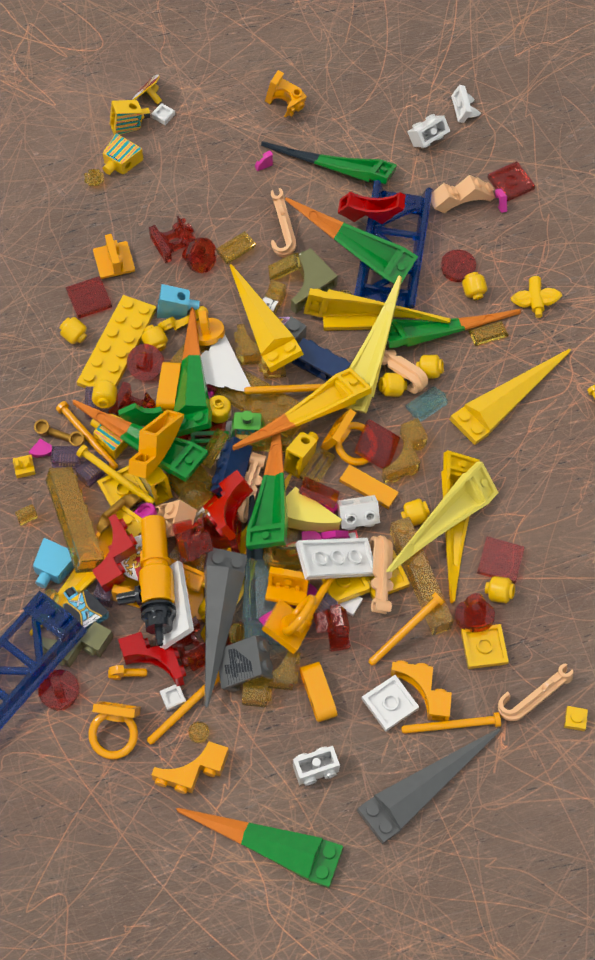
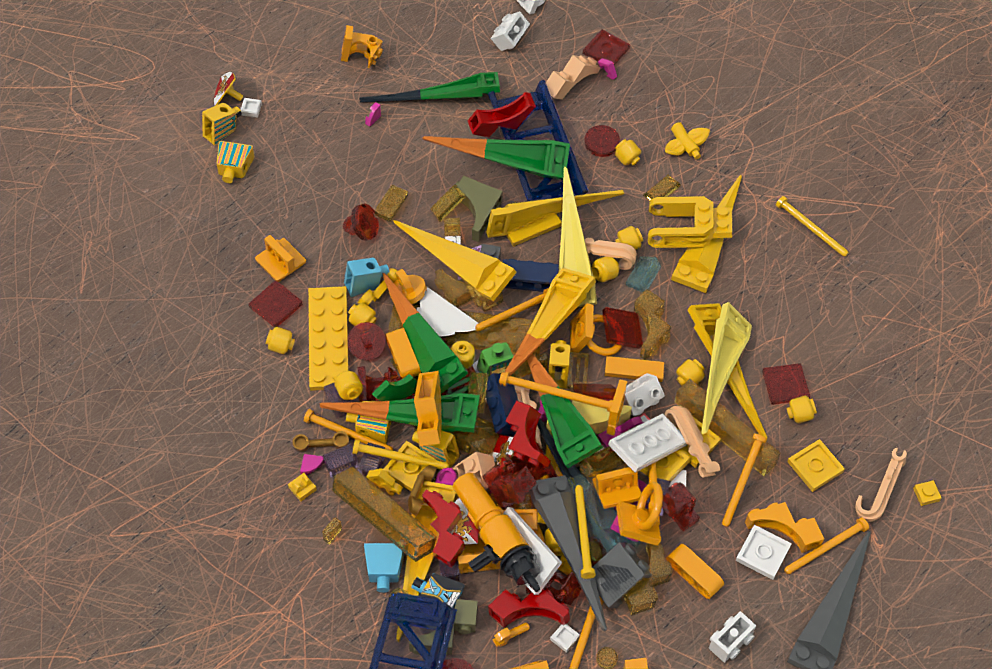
camera: 25 degrees left, 5 degrees down
(90, 488) = (382, 479): none -> yellow plate
(94, 177) = (218, 190): clear yellow plant -> none
(161, 239) = (330, 207): clear red tile -> none
(215, 648) = (587, 571): none -> yellow bar
(286, 226) = (427, 165): light nougat piece -> none
(319, 513) = (613, 406): none -> light orange tile
(419, 331) = (600, 213): green plate -> none
(475, 613) = (793, 439): clear red tile -> none
(508, 380) = (709, 222): none -> yellow plate

